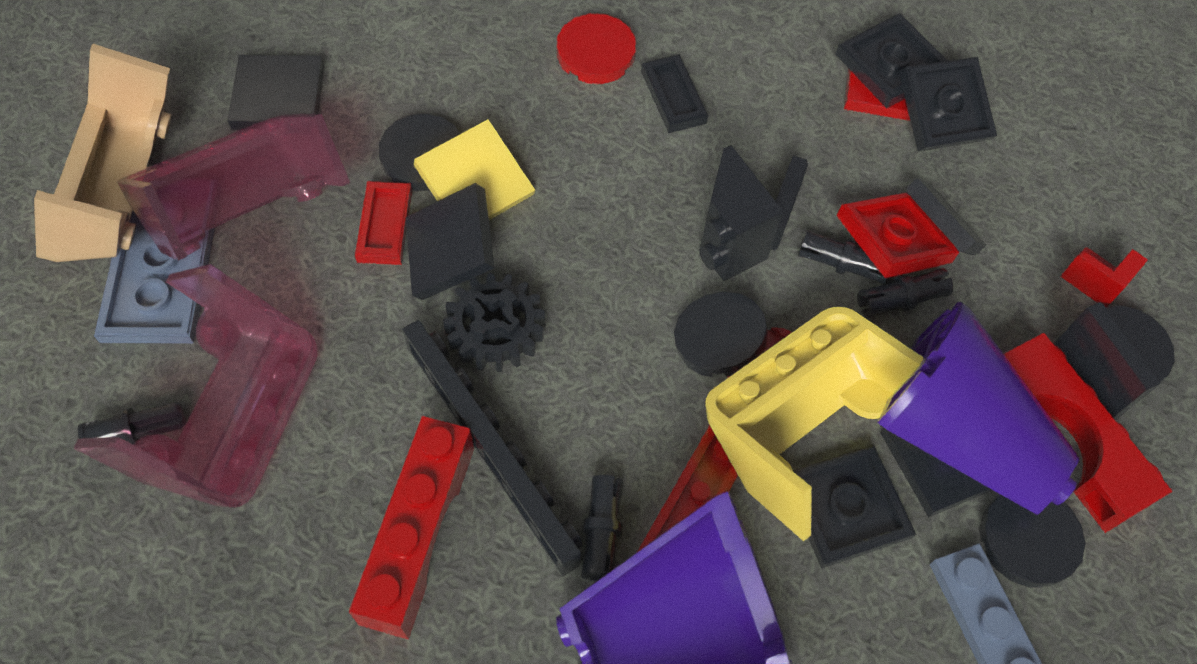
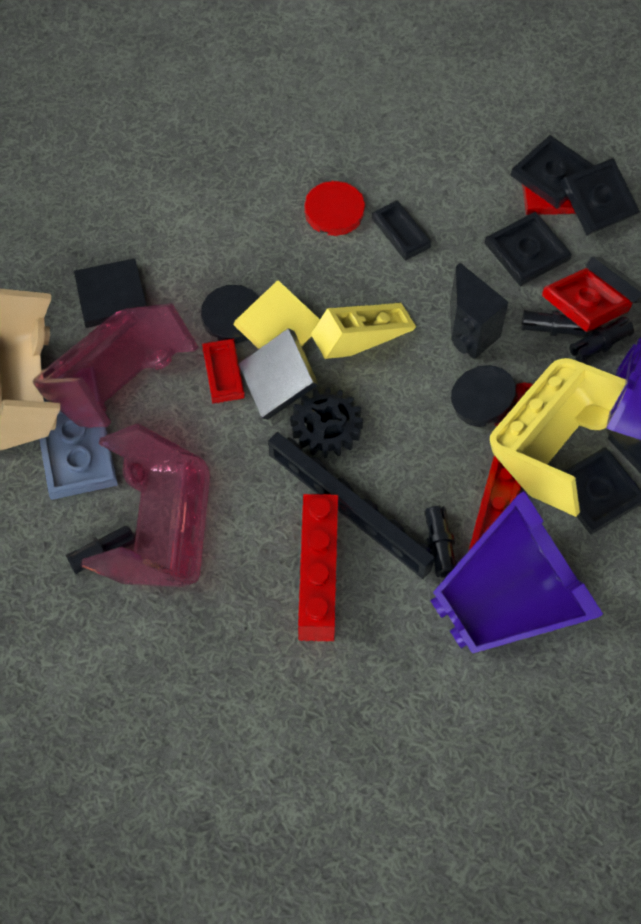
camera: 10 degrees left, 0 degrees up
(574, 205) = (359, 328): none -> light yellow slope
(788, 194) = (504, 284): black tile -> none
(838, 151) = (527, 248): none -> black tile

